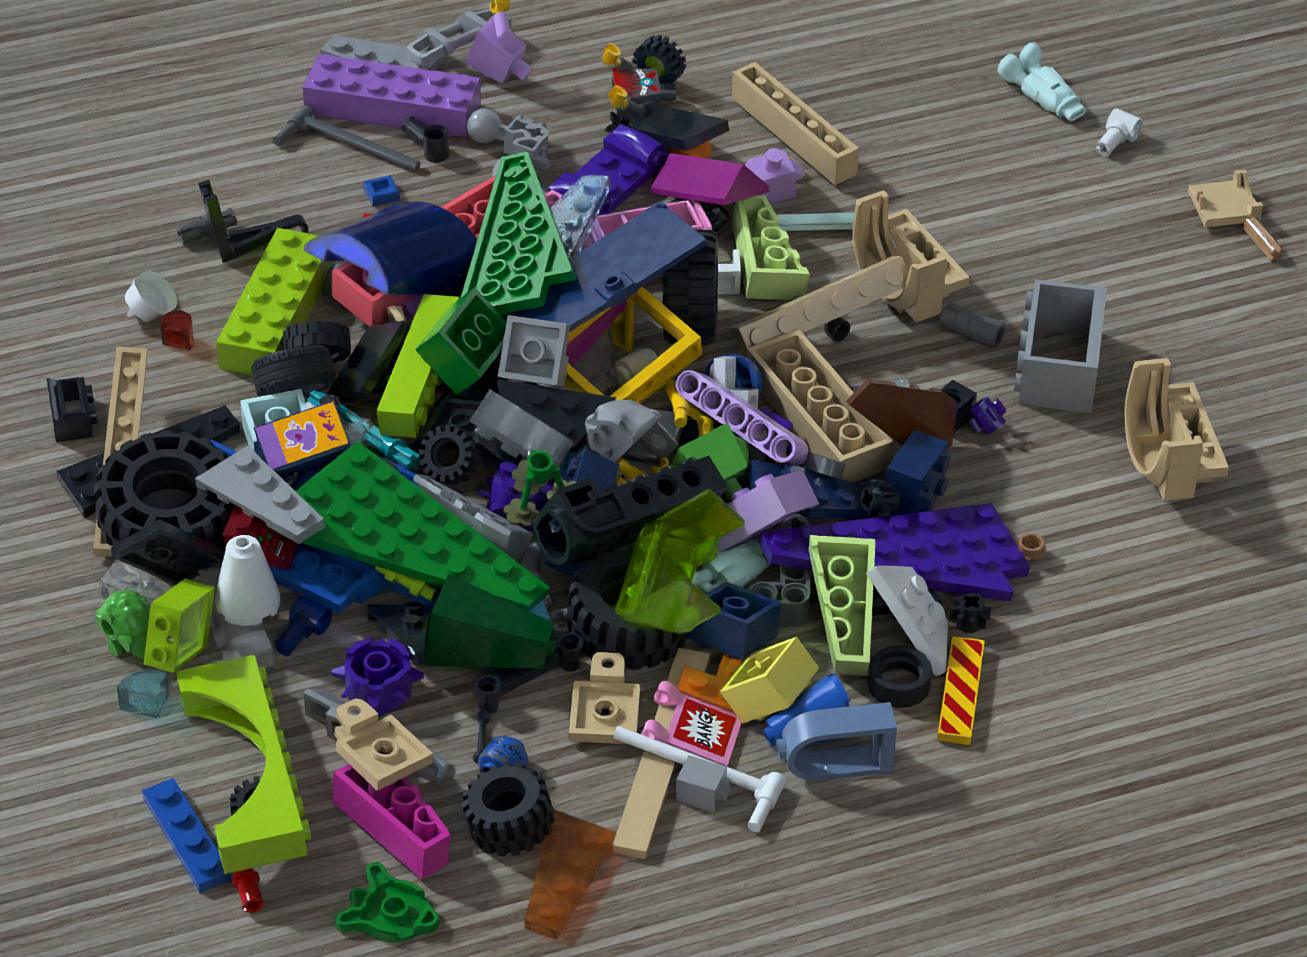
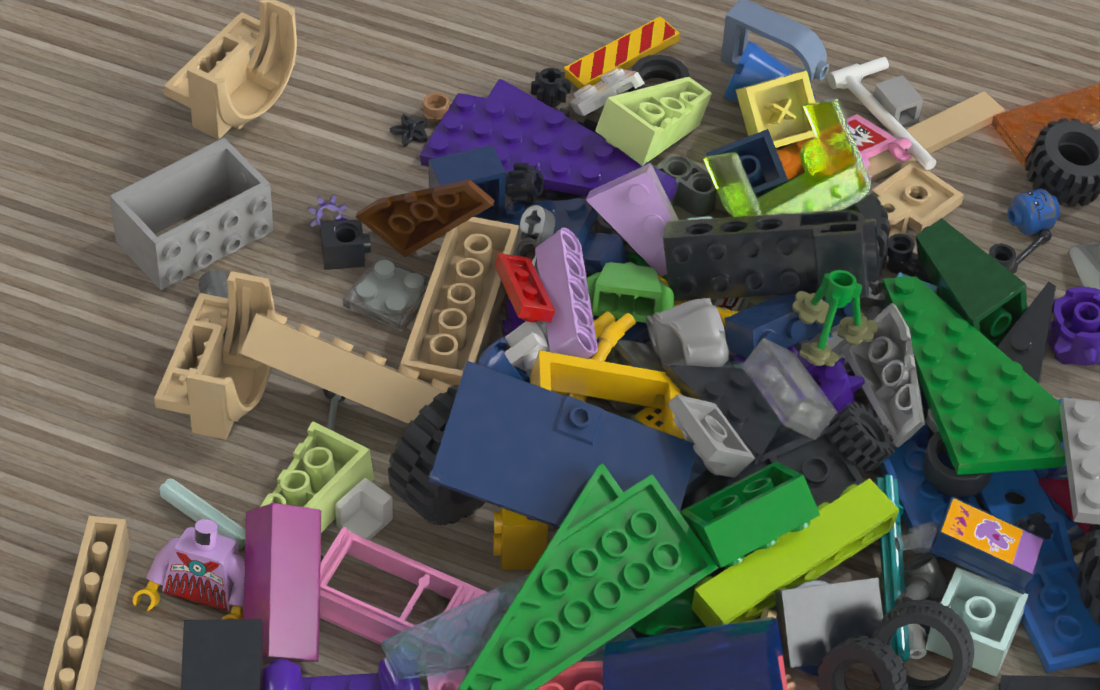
camera: 140 degrees left, 5 degrees up
(774, 400) = (524, 288): none -> red plate
(1028, 524) = (410, 130): none -> black plant

